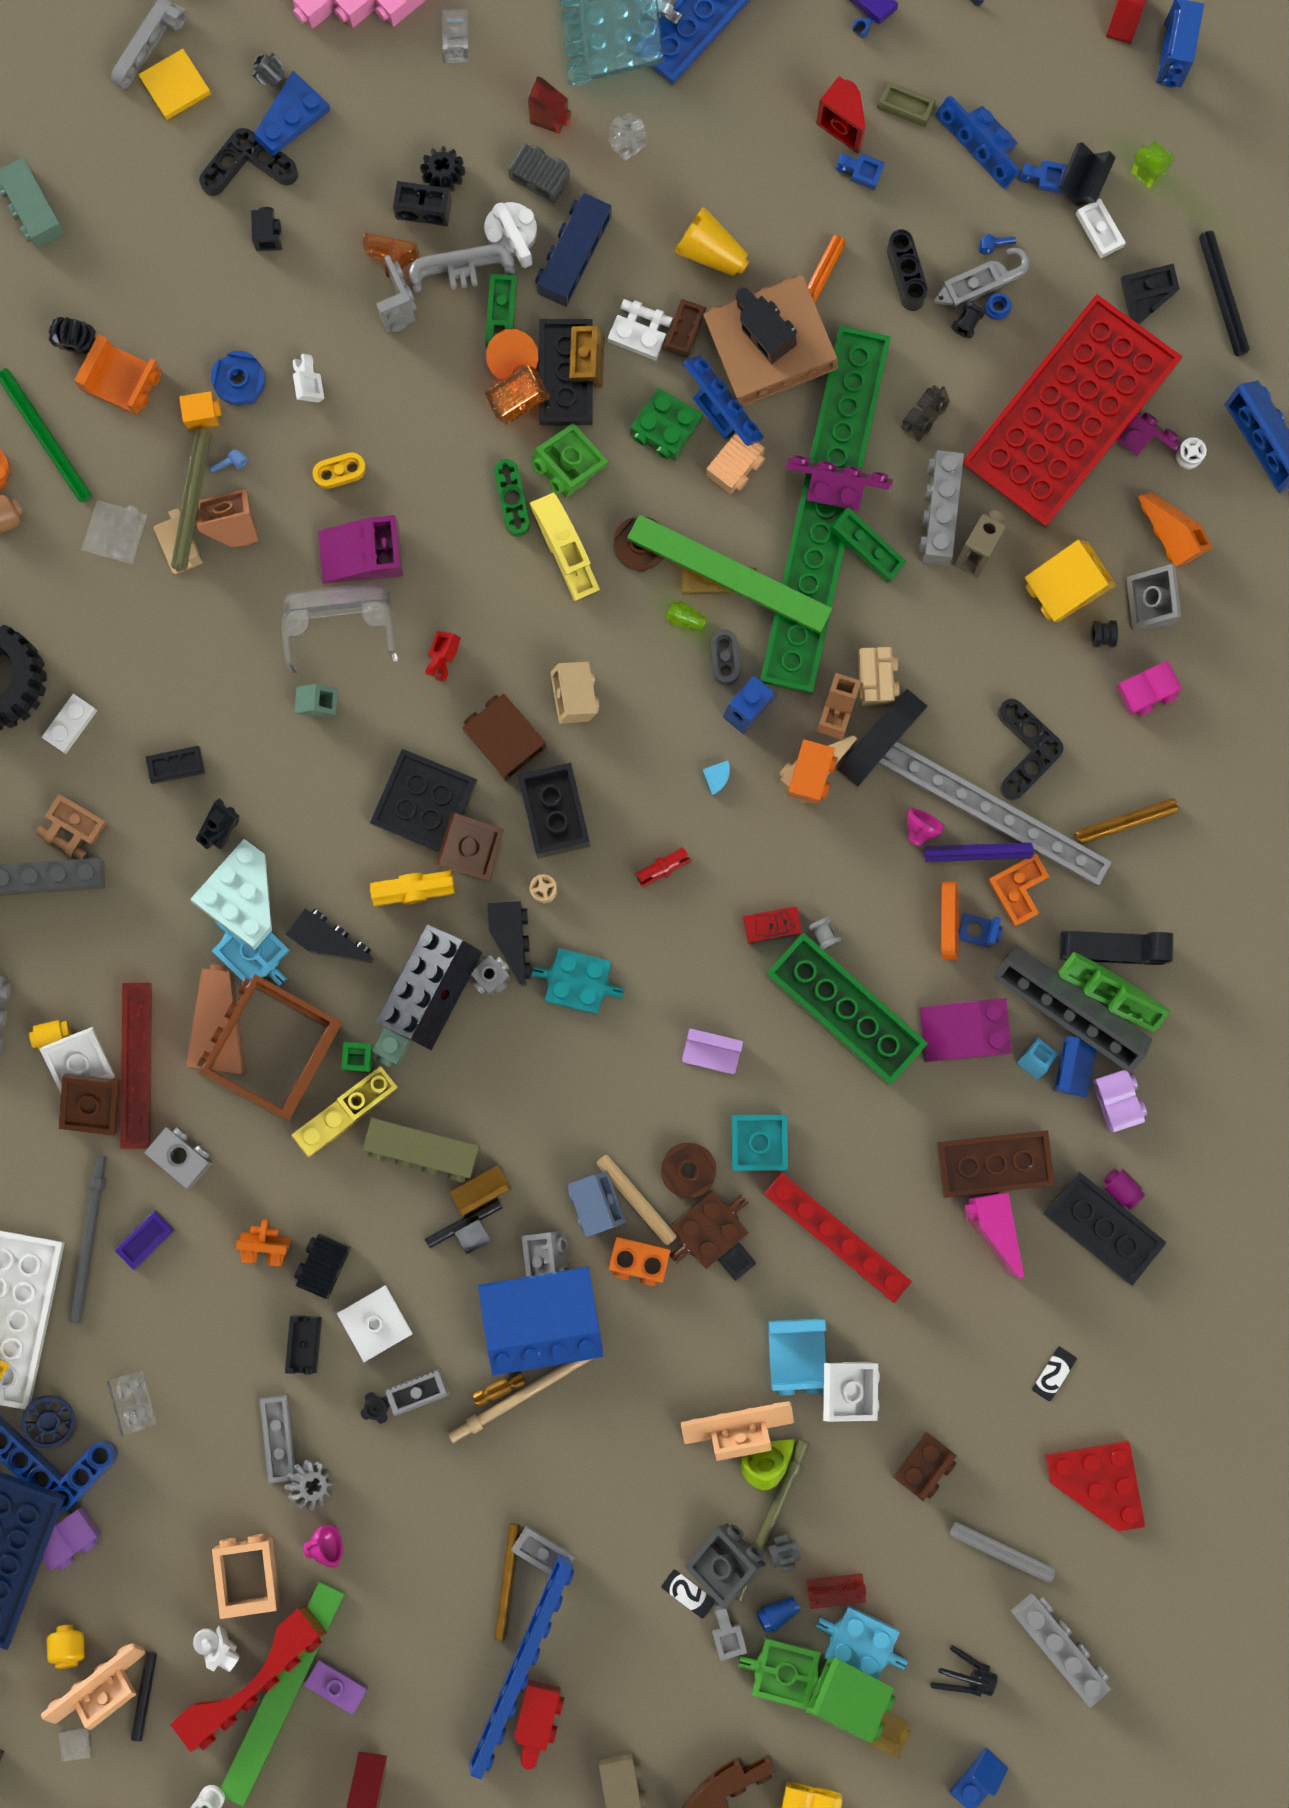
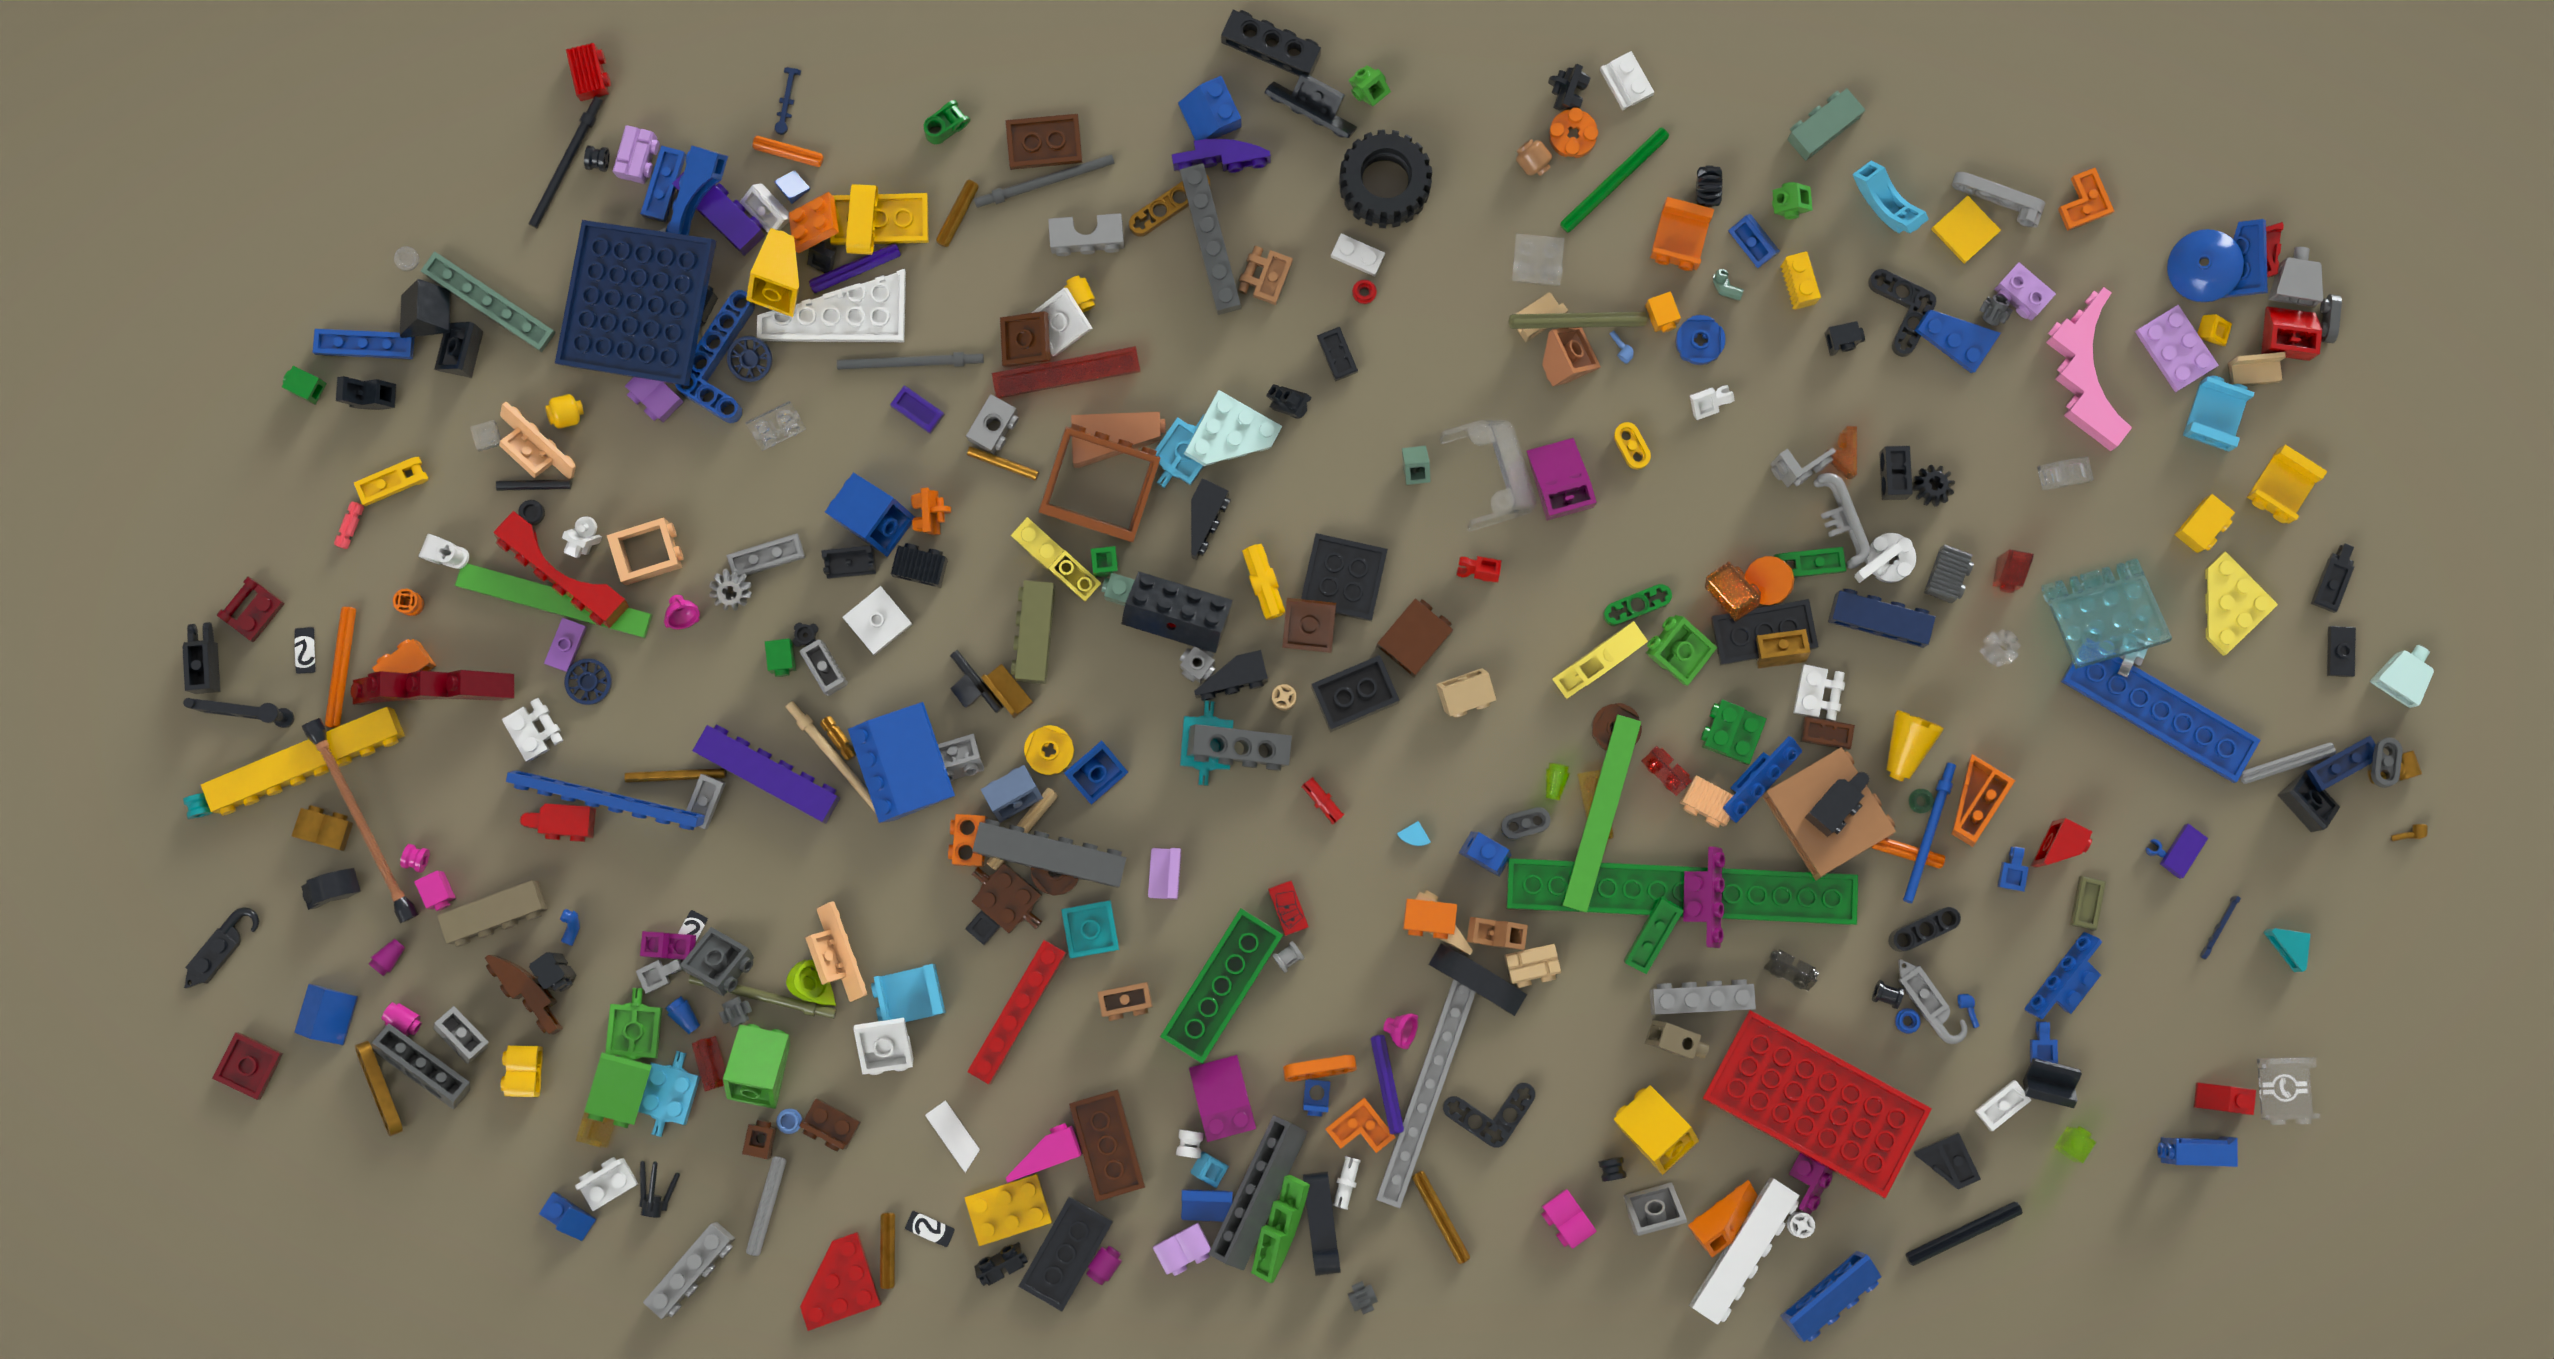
camera: 80 degrees right, 0 degrees up
(104, 722) = (1364, 284): none -> red plate
(105, 253) = (1792, 200): none -> bright green brick
(128, 157) = (1886, 201): none -> medium azure arch
(141, 303) = (1754, 240): none -> blue slope
(175, 1703) = (532, 512): none -> black tile
(186, 343) = (1724, 287): none -> sand green arm
(194, 261) = (1800, 280): none -> yellow brick
(224, 1153) = (1002, 463): none -> pearl gold bar
(253, 1311) = (870, 514): none -> blue slope
(254, 35) = (2025, 292): none -> lavender brick
(382, 1666) = (588, 681): none -> dark blue wheel
(396, 1440) = (780, 657): none -> green brick
(429, 1747) = (526, 734): none -> white plate
(524, 1477) = (767, 774): none -> dark purple brick
(559, 1170) = (1042, 738): none -> yellow plate
(589, 1106) = (1096, 772): none -> blue slope
(595, 904) = (1276, 744): none -> dark grey brick
(659, 1726) = (572, 927): none -> blue arm
(671, 1173) = (1049, 854): none -> dark grey brick
(696, 1620) = (666, 945): none -> magenta slope
(705, 494) = (1674, 778): none -> clear red hinge
(706, 1756) = (553, 971): none -> black brick
(763, 222) = (1943, 789): none -> blue bar
(776, 242) = (1928, 801): none -> clear green plate
(783, 187) = (1979, 799): none -> orange wedge
(844, 1116) = (1125, 999): none -> medium nougat brick
(847, 1538) = (756, 1066): none -> bright green slope
(913, 1511) = (789, 1121): none -> medium blue plate
(939, 1552) = (752, 1146): none -> reddish brown brick
(950, 1728) = (607, 1183): none -> white bracket
(956, 1331) = (953, 1134): none -> white sticker
(1008, 1073) = (1189, 1143): none -> white wheel
(1048, 1285) = (1008, 1210): none -> yellow plate
(1071, 1424) = (887, 1251): none -> pearl gold axle
(1075, 914) = (1346, 1182): none -> white pin
(1107, 1314) = (989, 1268): none -> black hinge
(1199, 917) = (1362, 1297): none -> dark grey gear
(1221, 522) = (1740, 1258): none -> white brick

